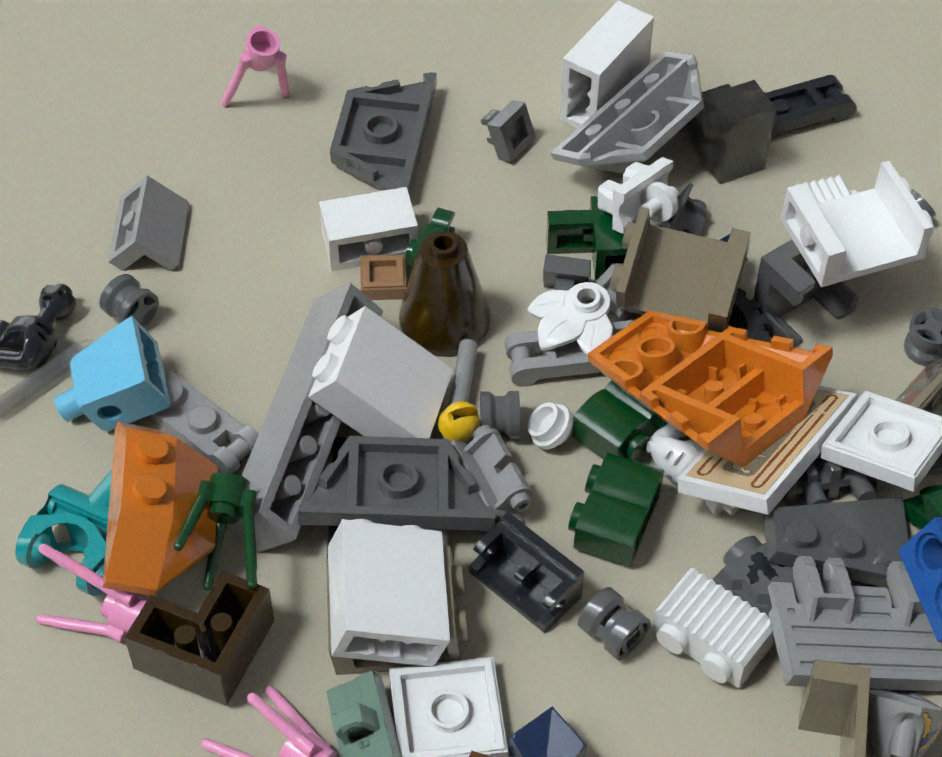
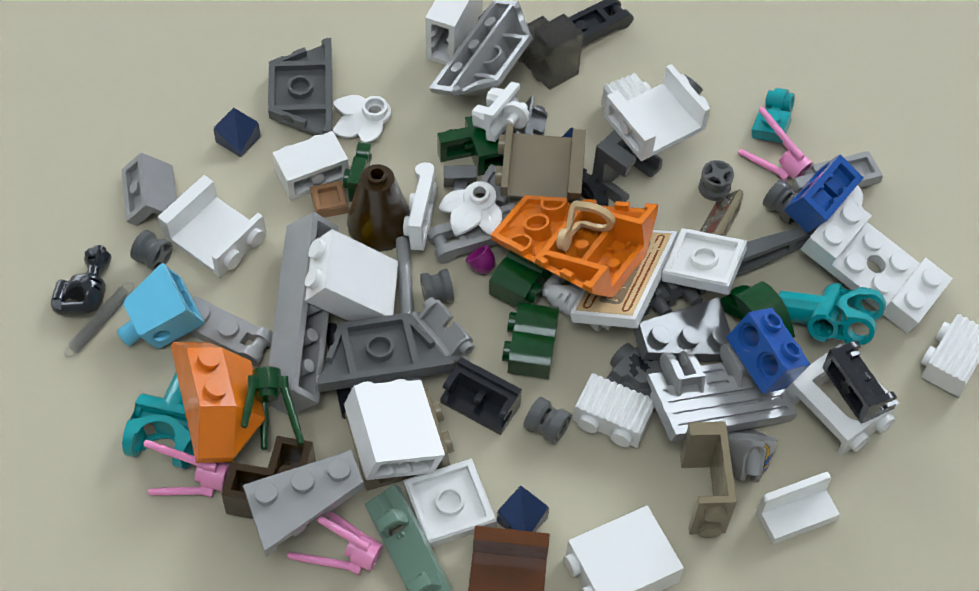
camera: 15 degrees left, 5 degrees up
(214, 286) = (210, 228): none -> white panel
(223, 659) = (298, 496): none -> light grey wing
(259, 54) = (201, 45): bright pink plant -> none
(282, 172) = (236, 132): none -> dark blue slope
(453, 179) = (361, 117): none -> white plate
(461, 428) = (413, 303): yellow hinge -> none
(503, 304) = (421, 207): none -> white plate
(509, 130) = (393, 73): dark grey tile -> none
(550, 425) = (473, 289): white plate -> none
(571, 389) = (481, 260): none -> magenta hinge
(690, 369) = (565, 234): none -> tan piece

